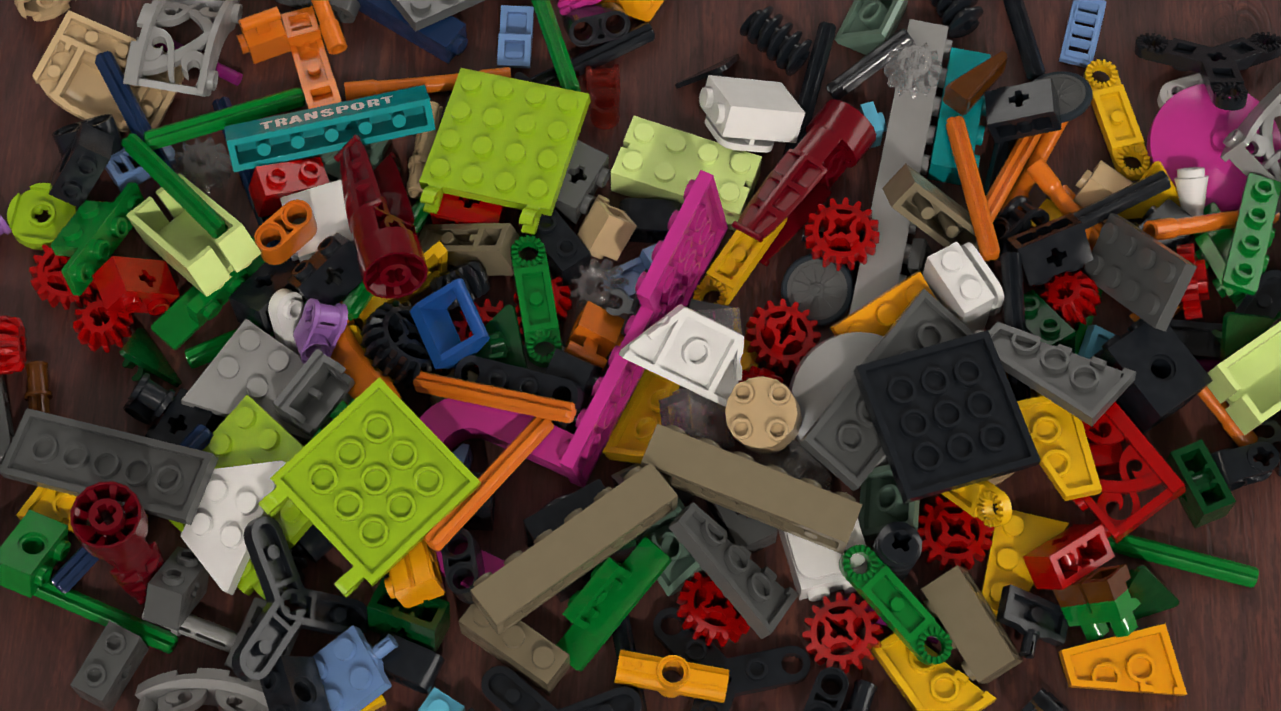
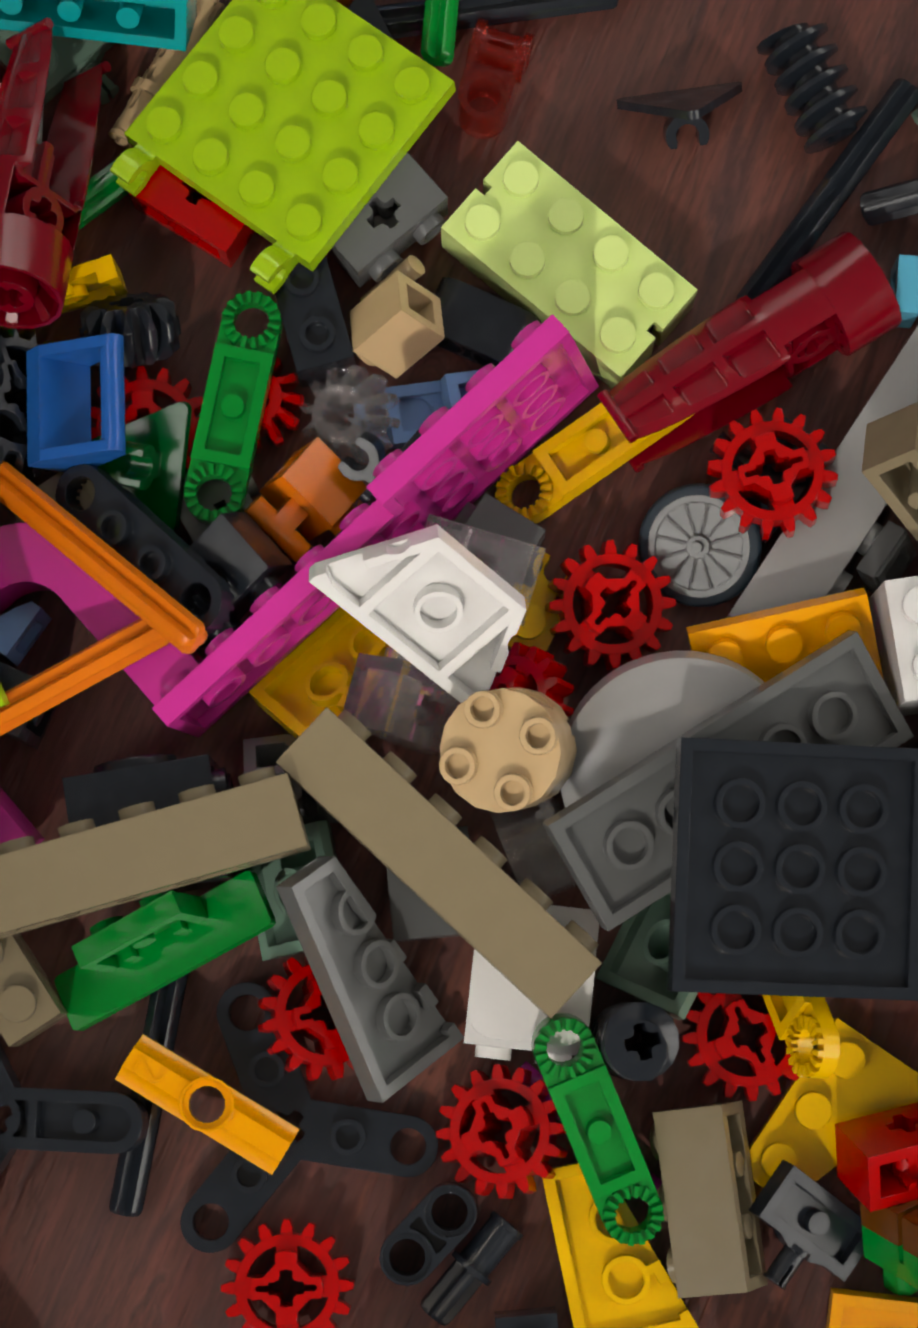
camera: 25 degrees right, 15 degrees up
(475, 241) = (174, 264): dark tan slope -> none
(750, 113) = (709, 206): white brick -> none

